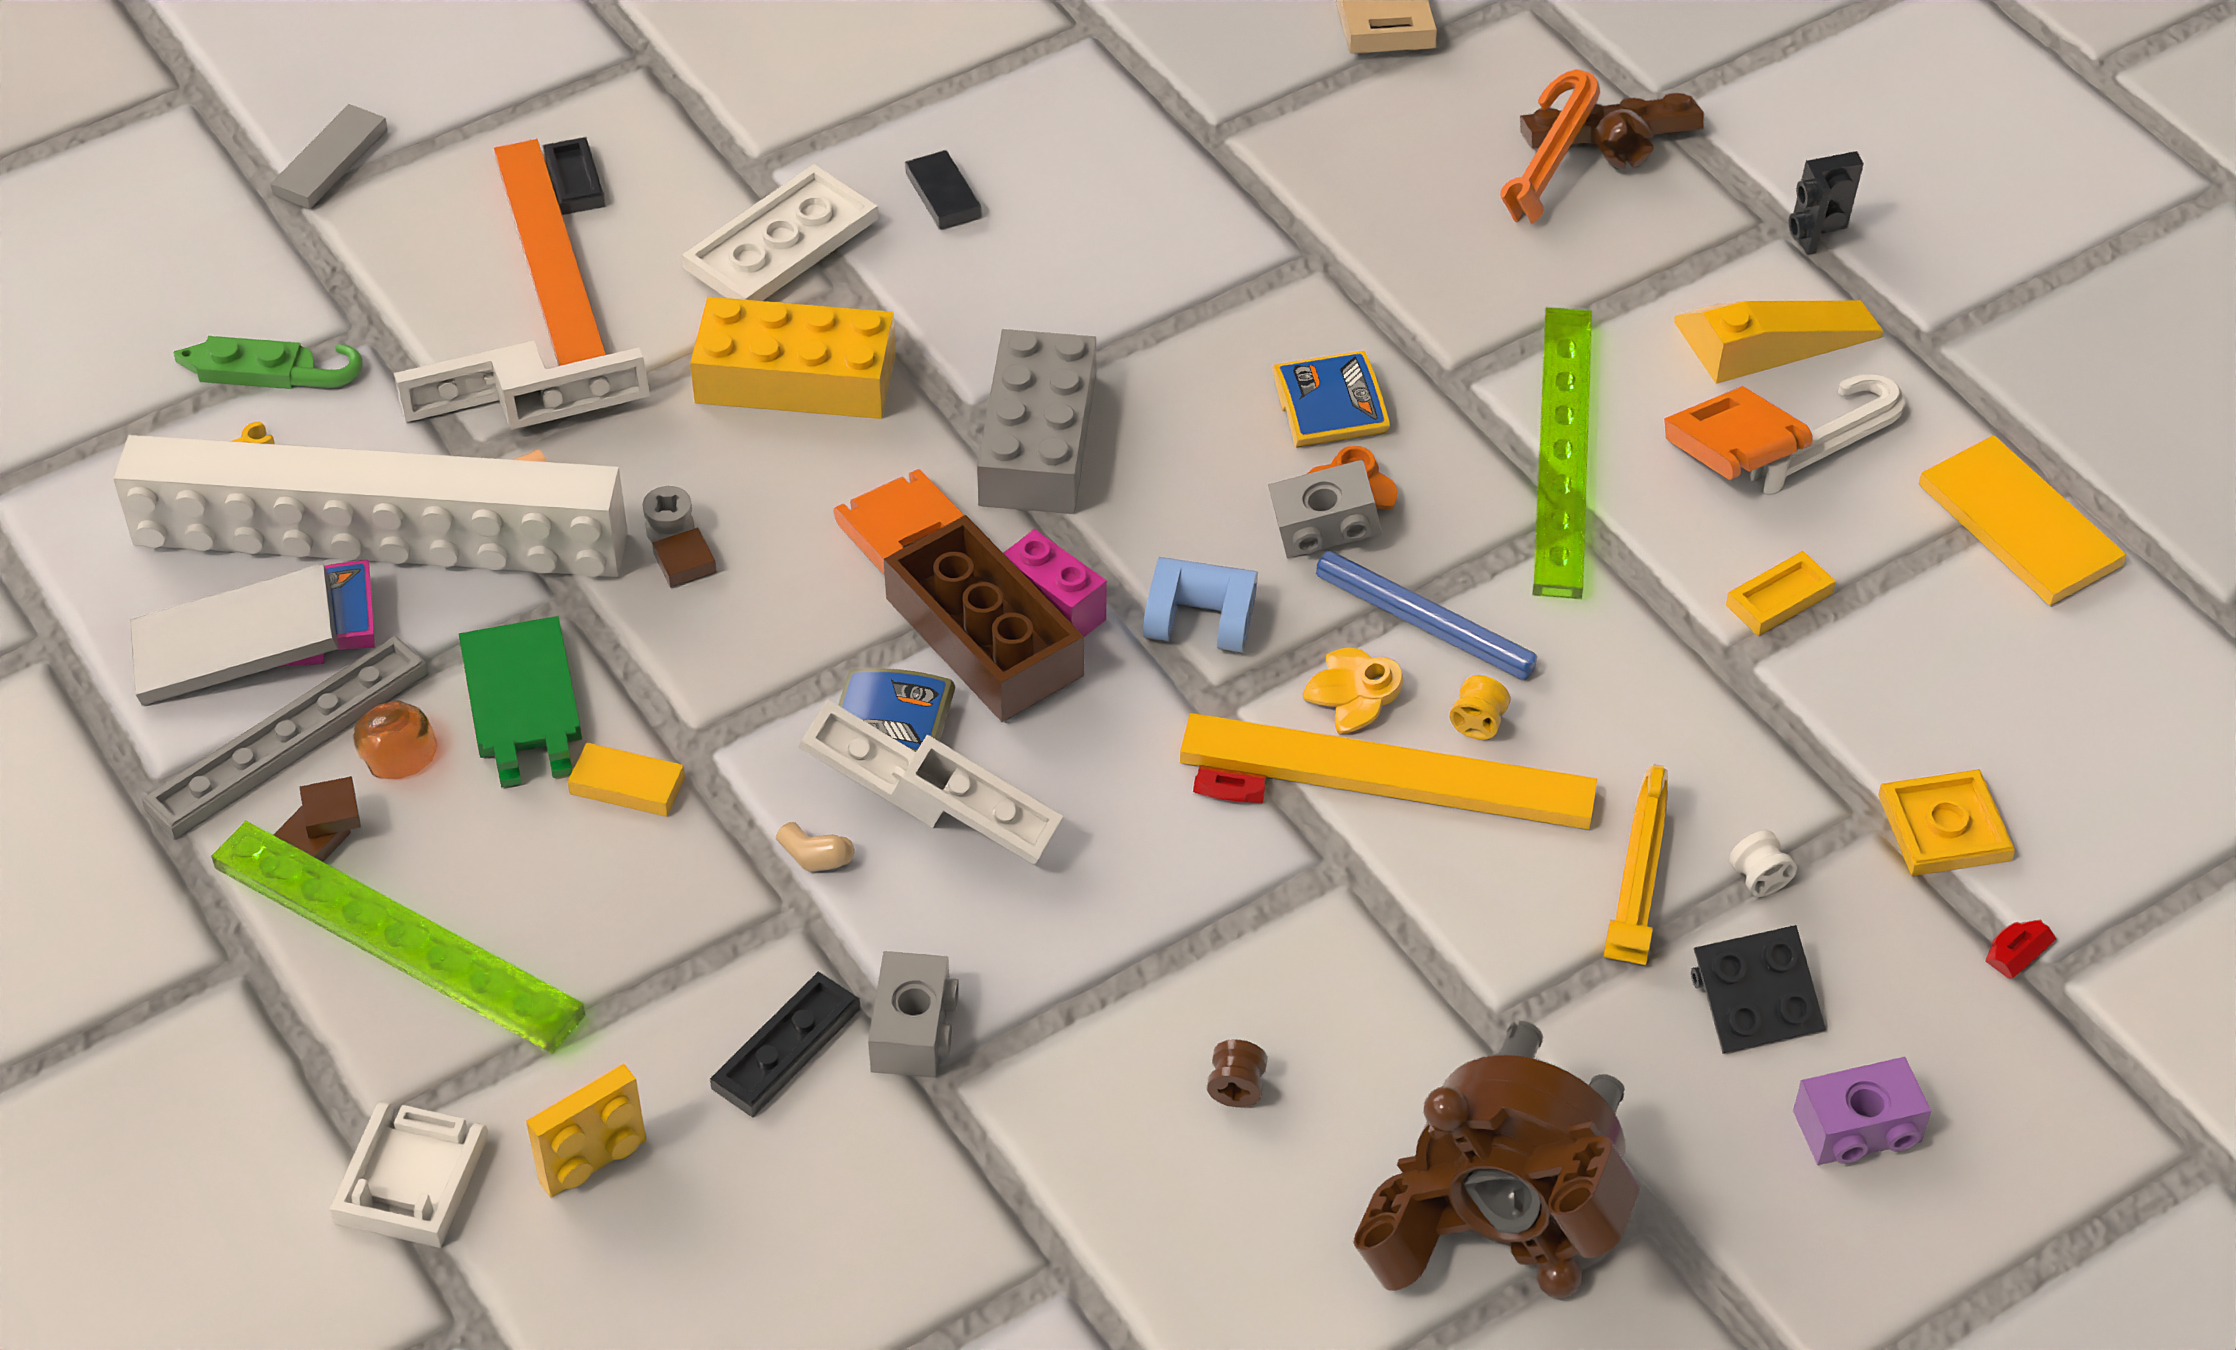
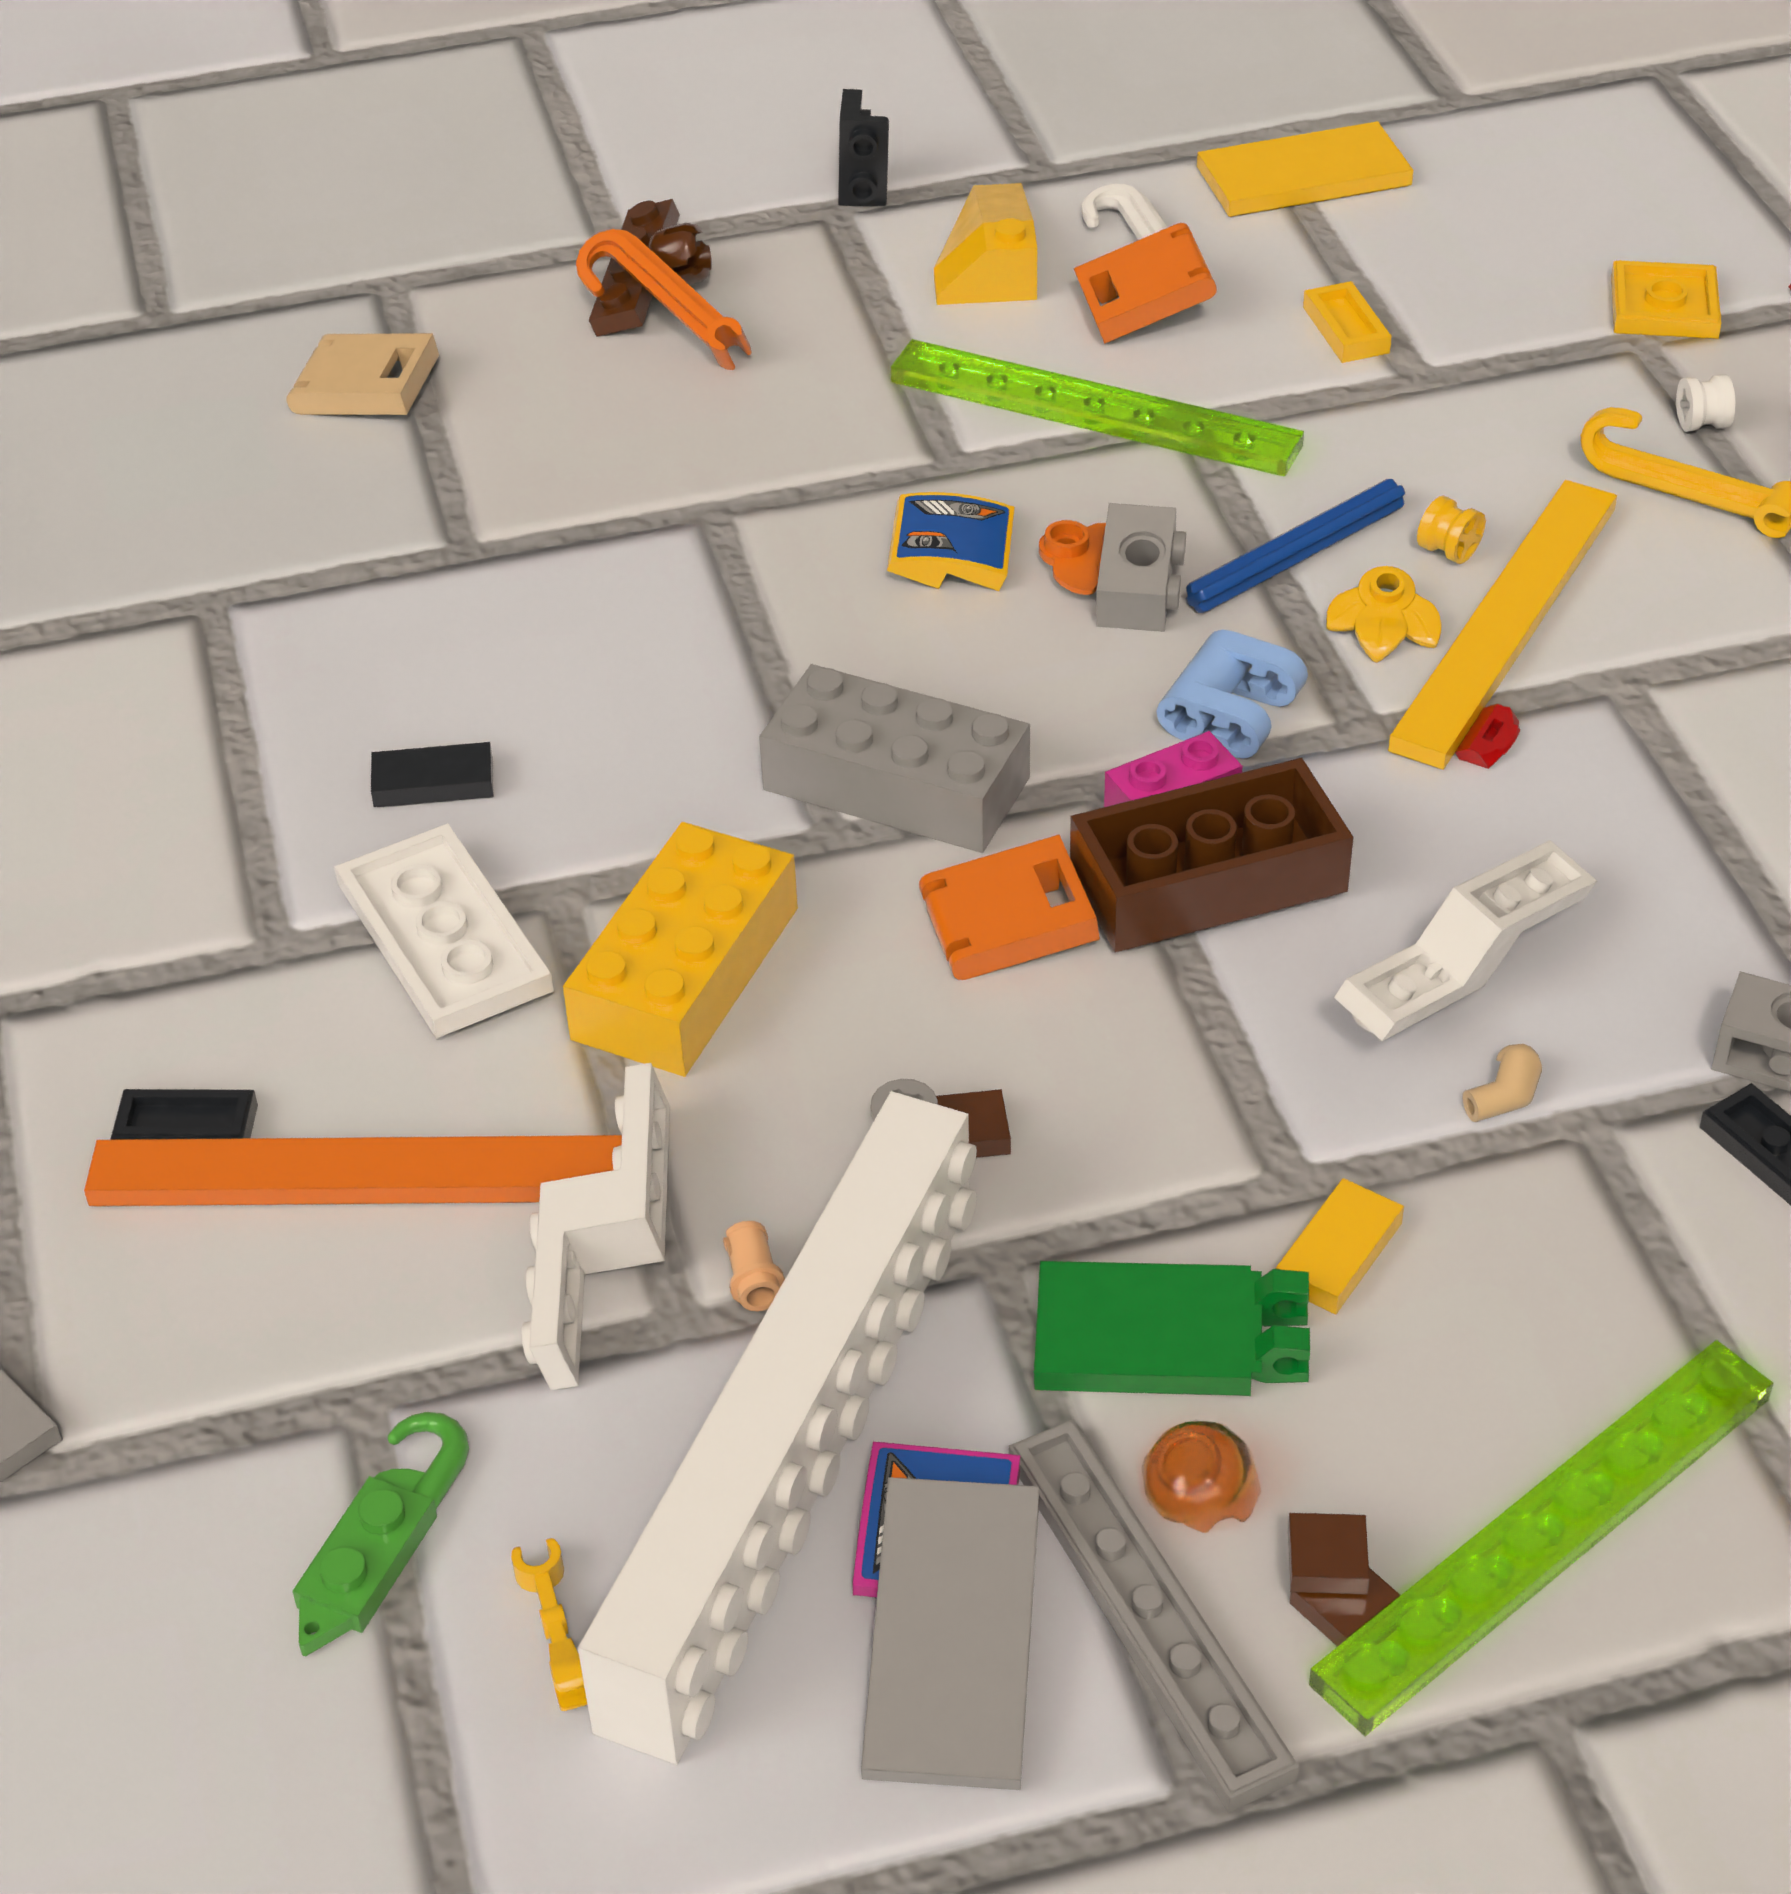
camera: 70 degrees left, 5 degrees down
(899, 702) = (1301, 971): slope -> none

